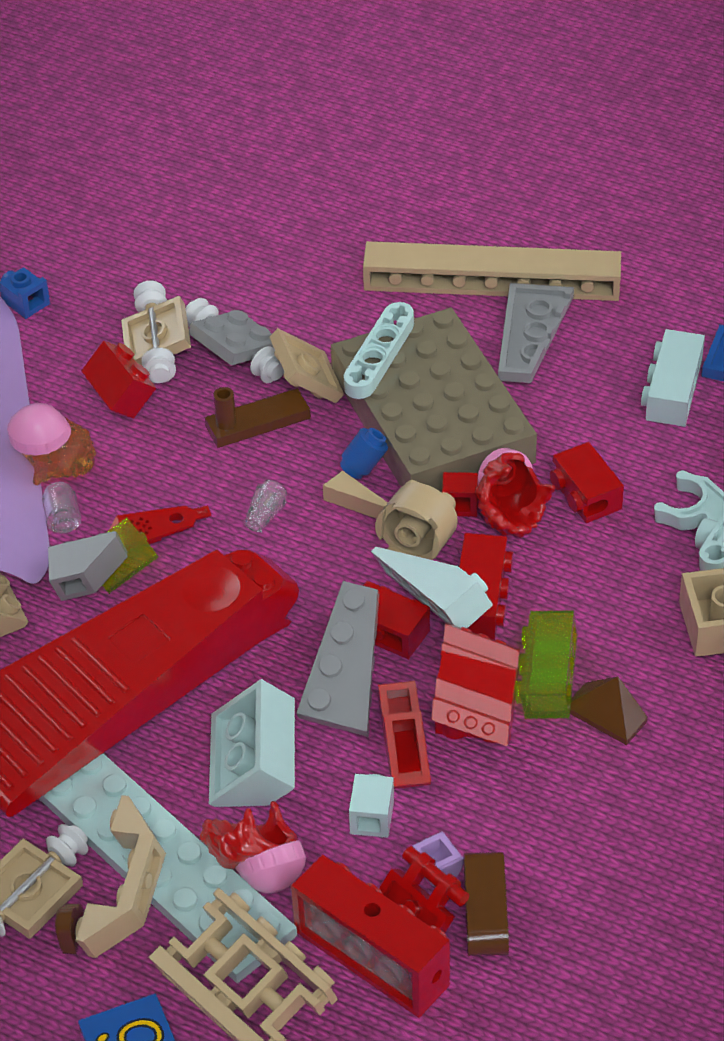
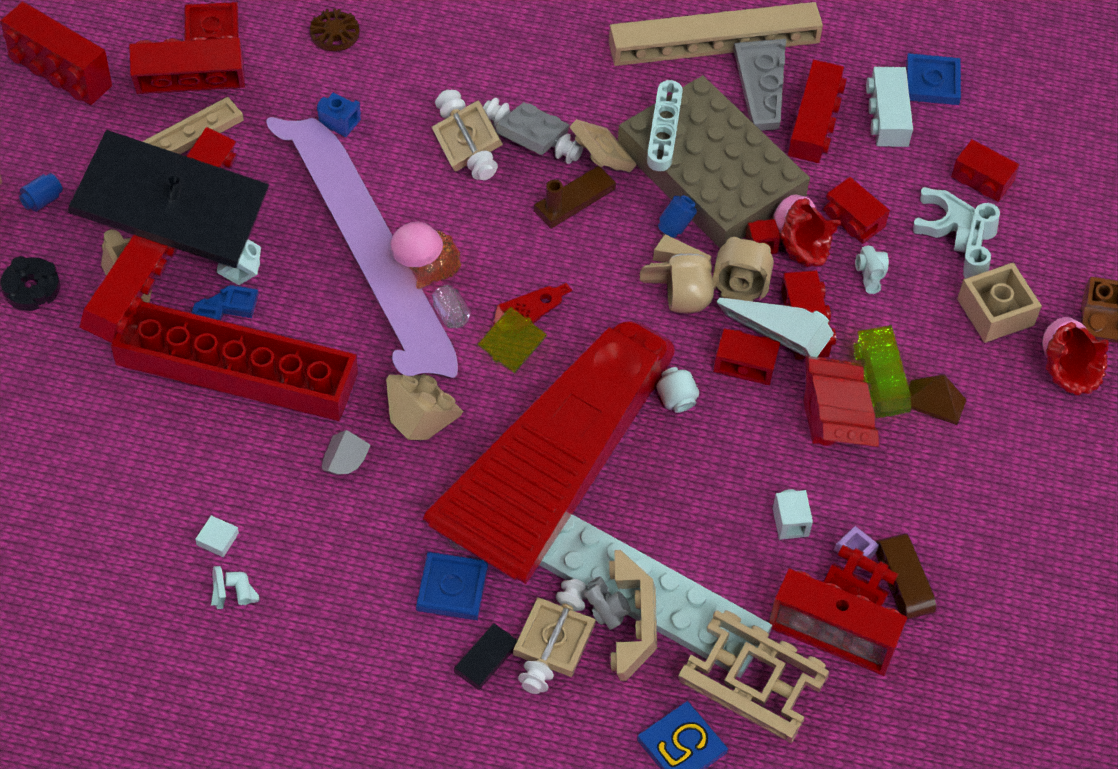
camera: 20 degrees left, 10 degrees up
(59, 209) = (334, 30): none -> reddish brown wheel
(65, 927) = (601, 662): reddish brown tile -> none
(84, 564) = (492, 354): light grey slope -> none
(101, 865) = (607, 608): none -> light grey plate
(119, 378) = (455, 183): red brick -> none
(252, 748) = (683, 485): light aqua slope -> none
(263, 854) = (725, 569): hair -> none
(265, 504) = (613, 272): clear cone -> none
(288, 641) = (677, 390): none -> light aqua head
(341, 676) = (731, 407): light grey wing -> none
(345, 523) = (687, 281): none -> tan piece
(404, 734) = (794, 450): red slope -> none
(581, 369) = (816, 111): none -> red brick
(583, 544) = (873, 267): none -> light aqua plate

